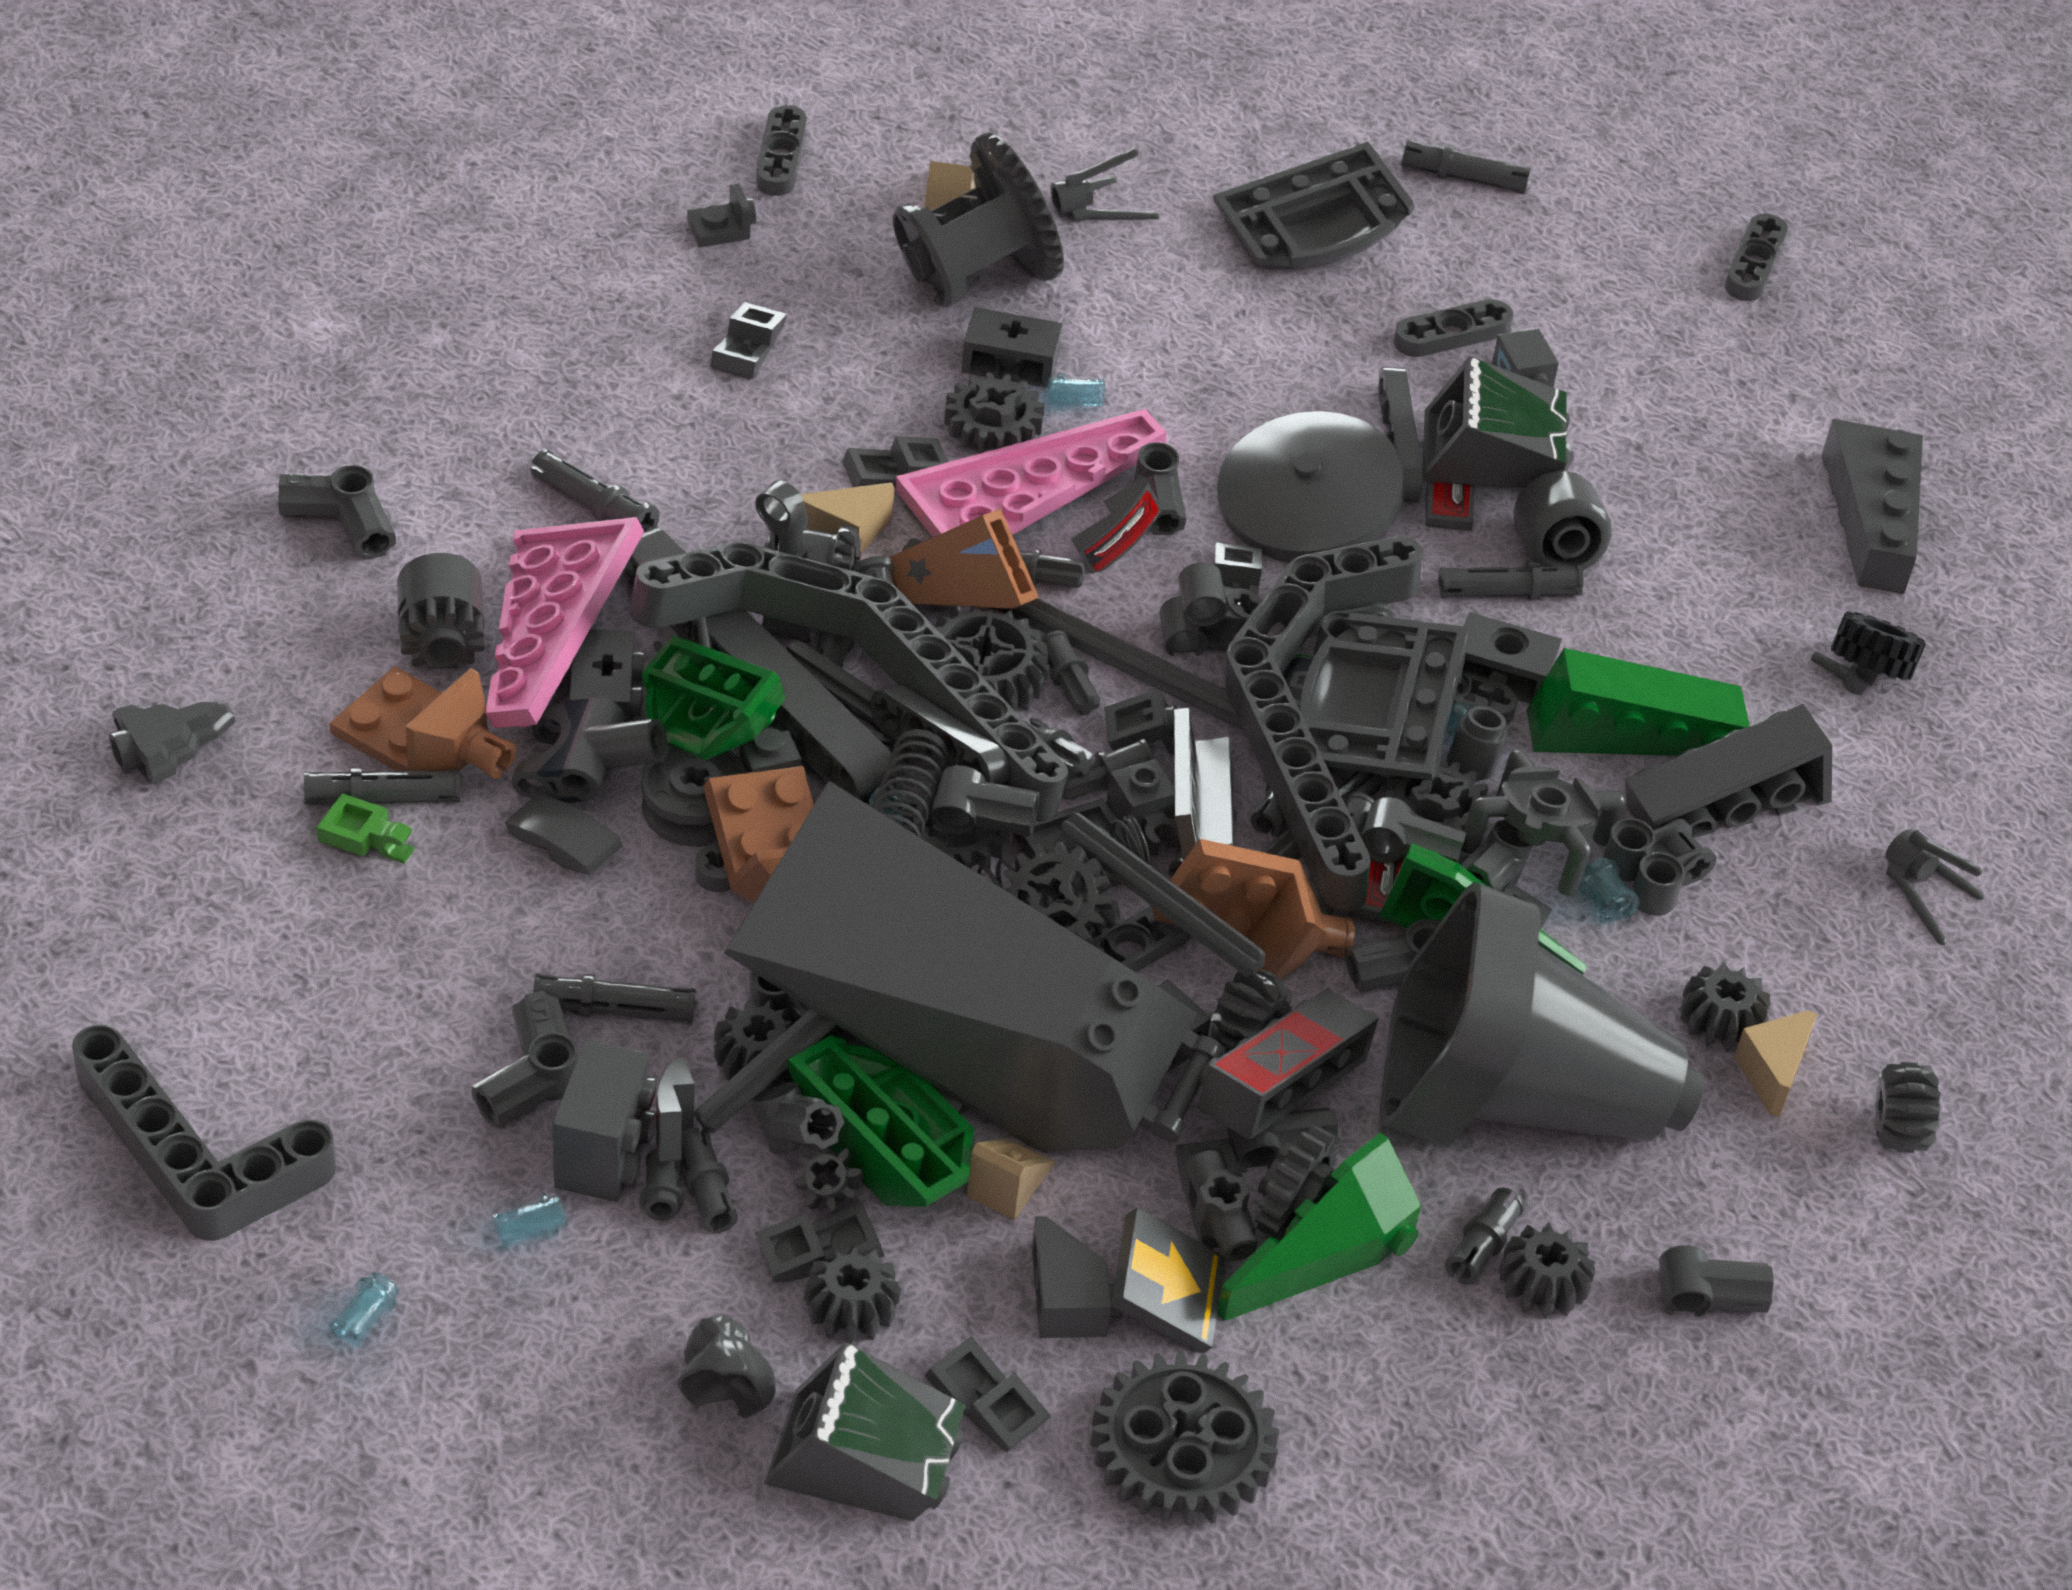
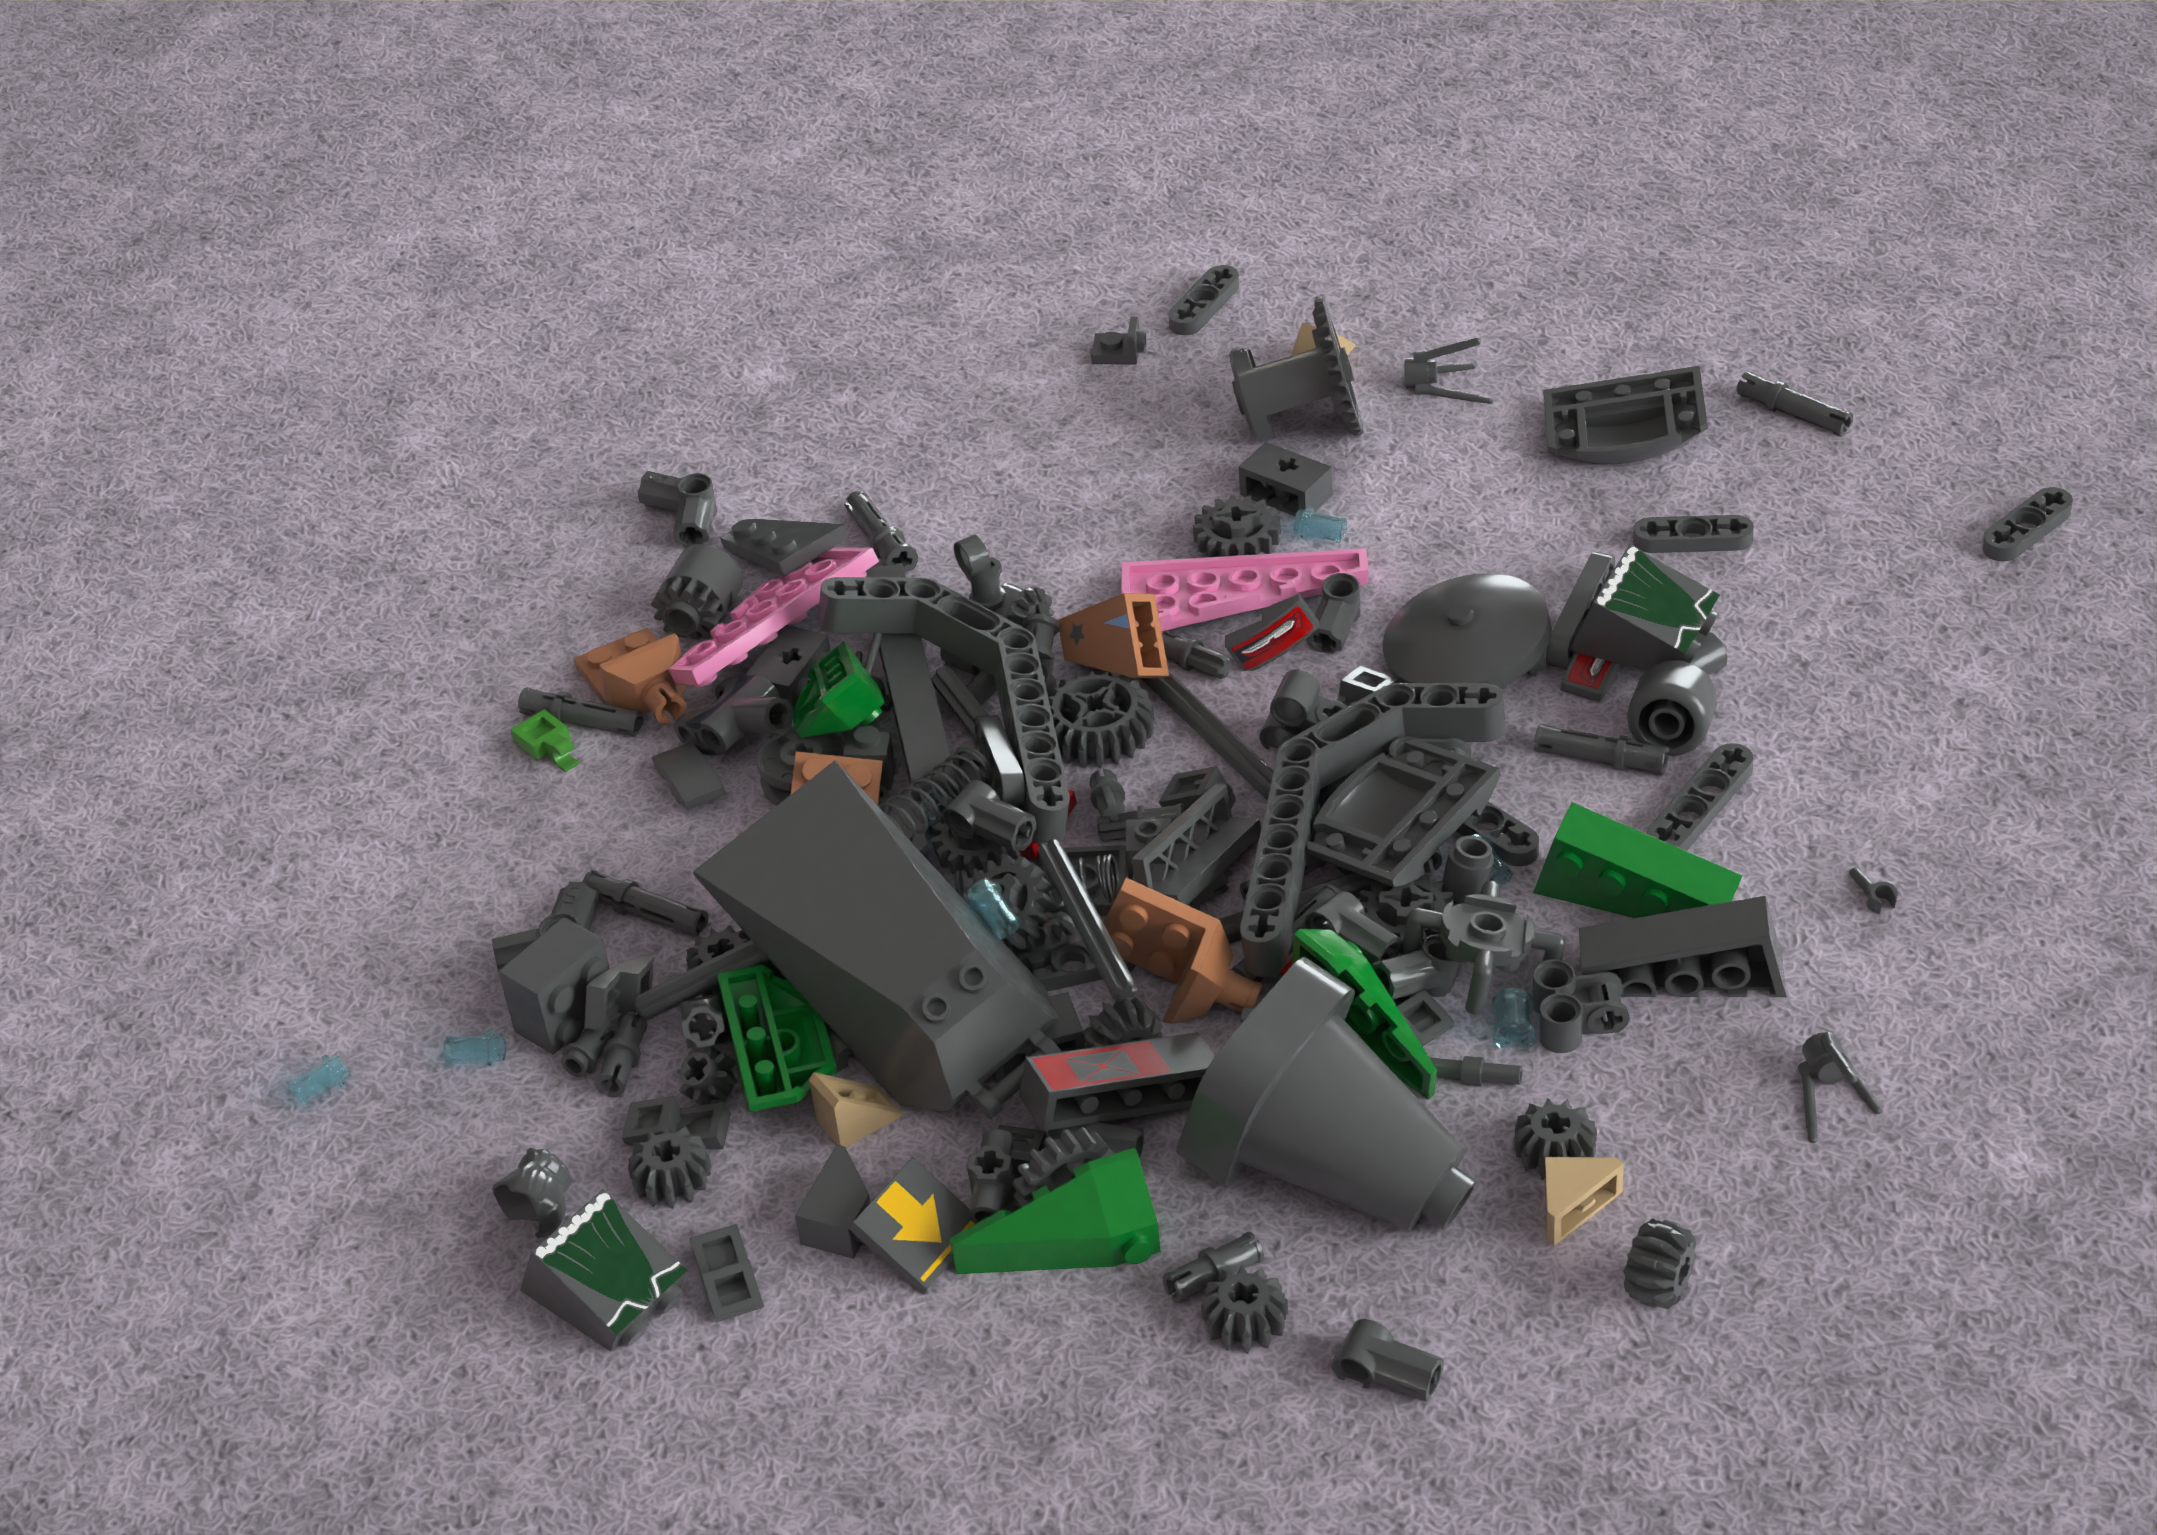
camera: 35 degrees right, 5 degrees down
(164, 737) = (453, 641): dark grey rock -> none
(204, 1193) = (266, 965): dark grey beam -> none
(497, 532) = (780, 543): none -> dark grey wing
(748, 340) = (1083, 437): dark grey slope -> none
(861, 507) = (1068, 583): tan slope -> none
(882, 466) = (1113, 551): dark grey slope -> none
(1064, 906) = (987, 899): none -> clear light blue pin
(1070, 673) = (1166, 741): dark grey axle -> none
(1222, 1466) = (852, 1351): dark grey gear -> none
(1509, 654) = (1541, 800): dark grey brick -> none
(1526, 355) = (1734, 573): dark grey brick -> none
(1602, 955) = (1476, 1071): none -> dark grey bar
(1636, 617) = (1706, 805): none -> dark grey beam
(1878, 499) = (1999, 749): dark grey wedge -> none
(1878, 645) = (1905, 871): black tyre -> none

